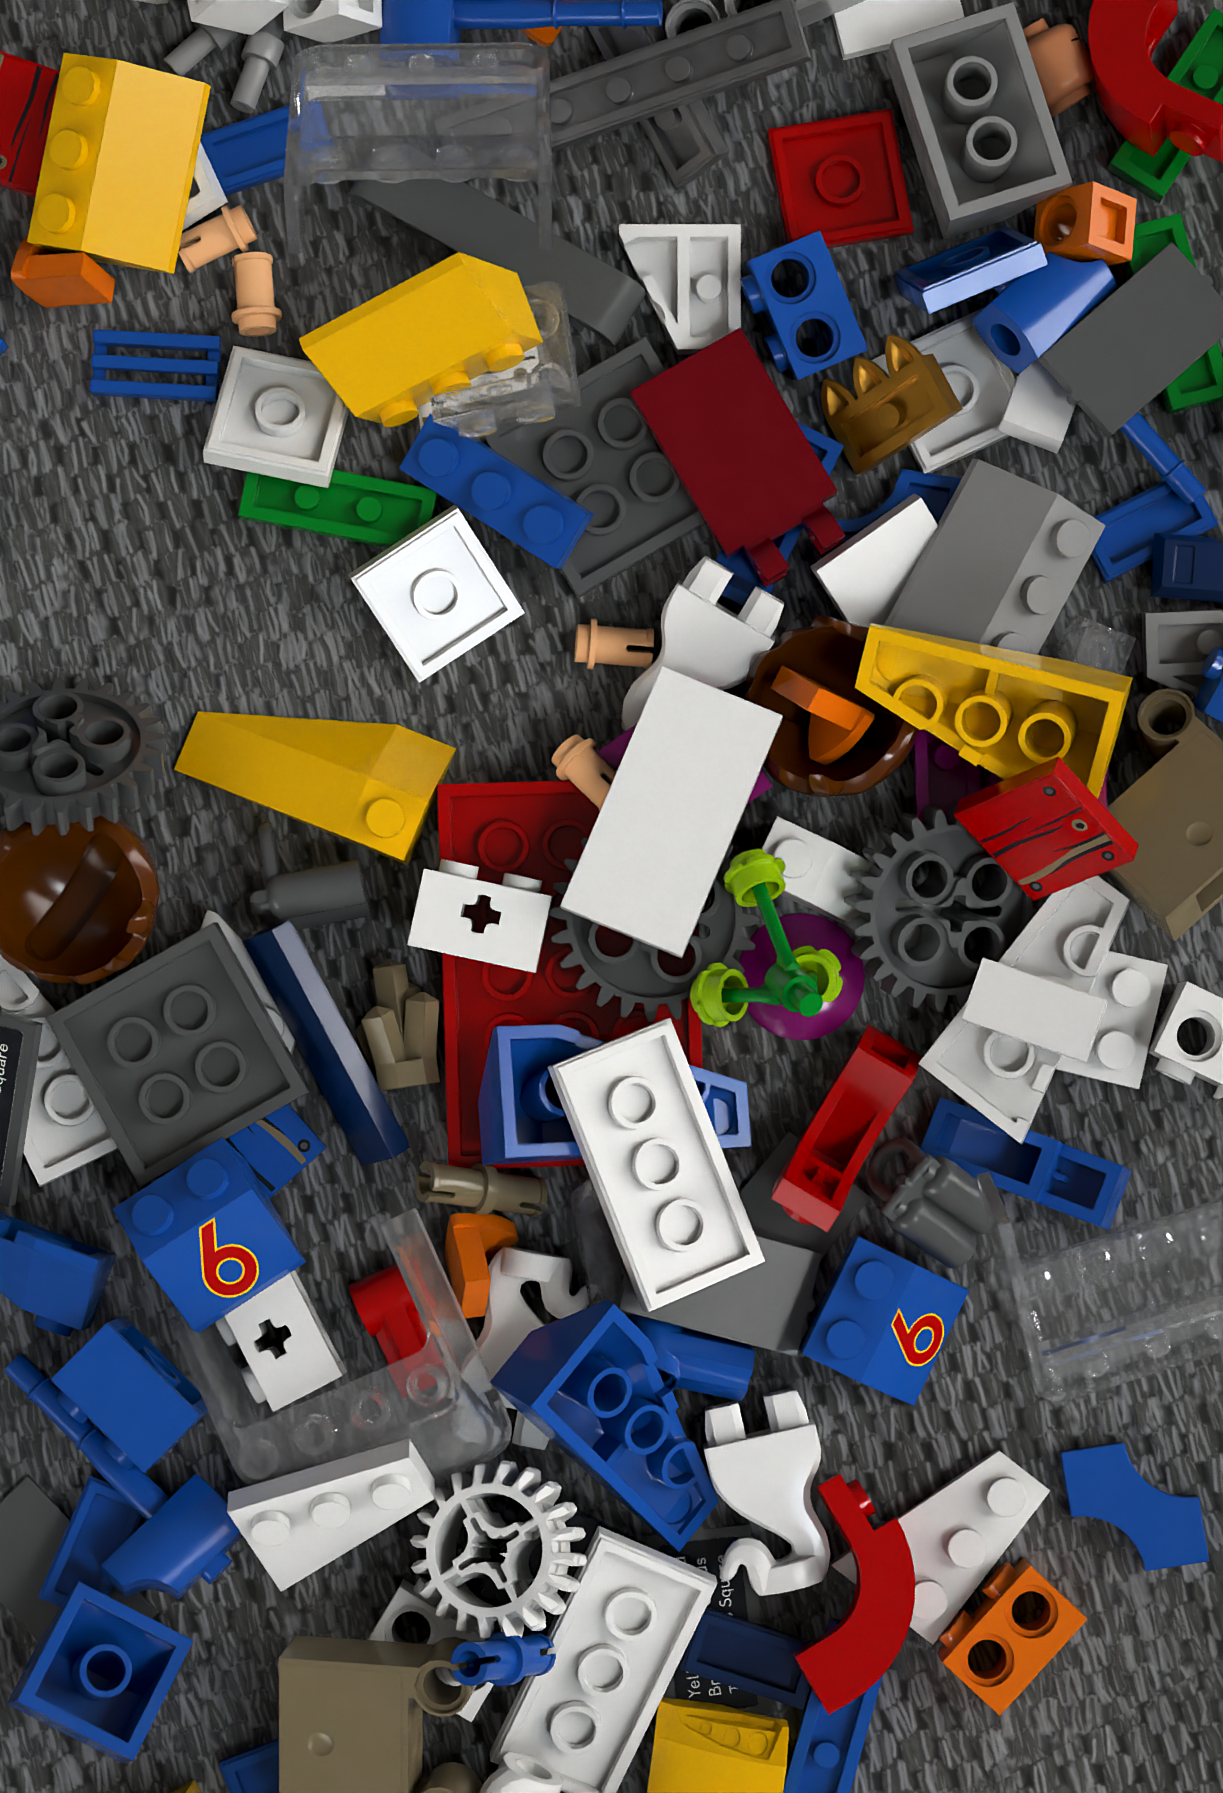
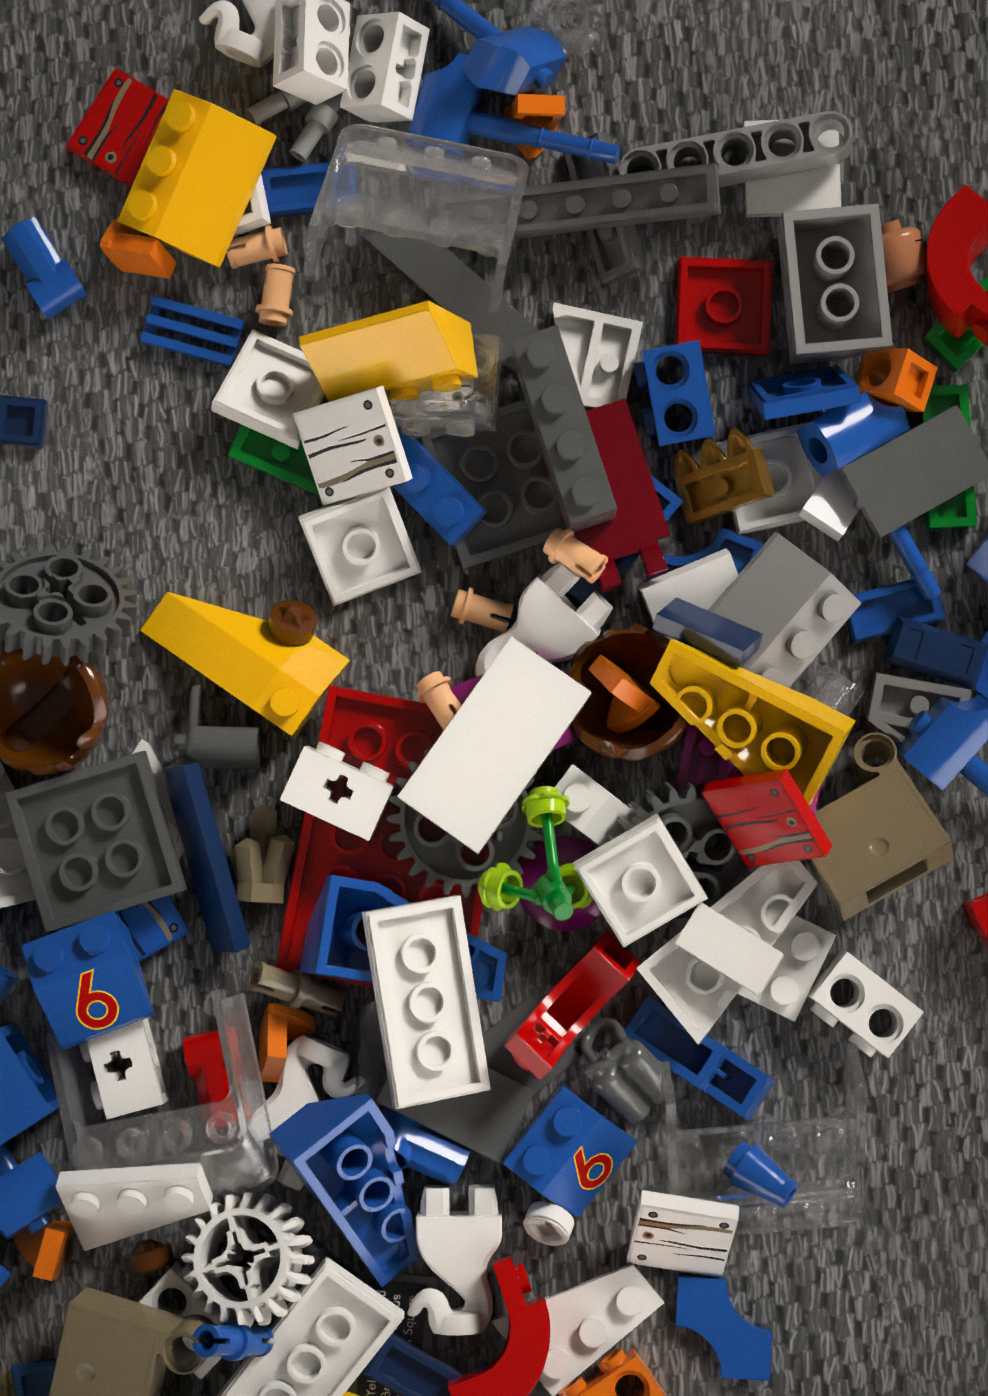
camera: 10 degrees right, 0 degrees up
(230, 1599) = (46, 1249): none -> orange tile
(366, 1579) = (148, 1256): none -> reddish brown tile
(370, 715) = (292, 622): none -> reddish brown tile
(400, 465) = (352, 445): none -> white tile
(669, 383) = (563, 429): none -> dark grey brick
(720, 543) = (574, 554): none -> light nougat pin
(877, 1421) = (548, 1223): none -> white tile
(898, 947) = (640, 880): none -> white tile
(915, 605) = (707, 631): none -> dark blue tile
(1054, 1394) = (682, 1233): none -> white tile
(1138, 1296) = (759, 1175): none -> blue cone

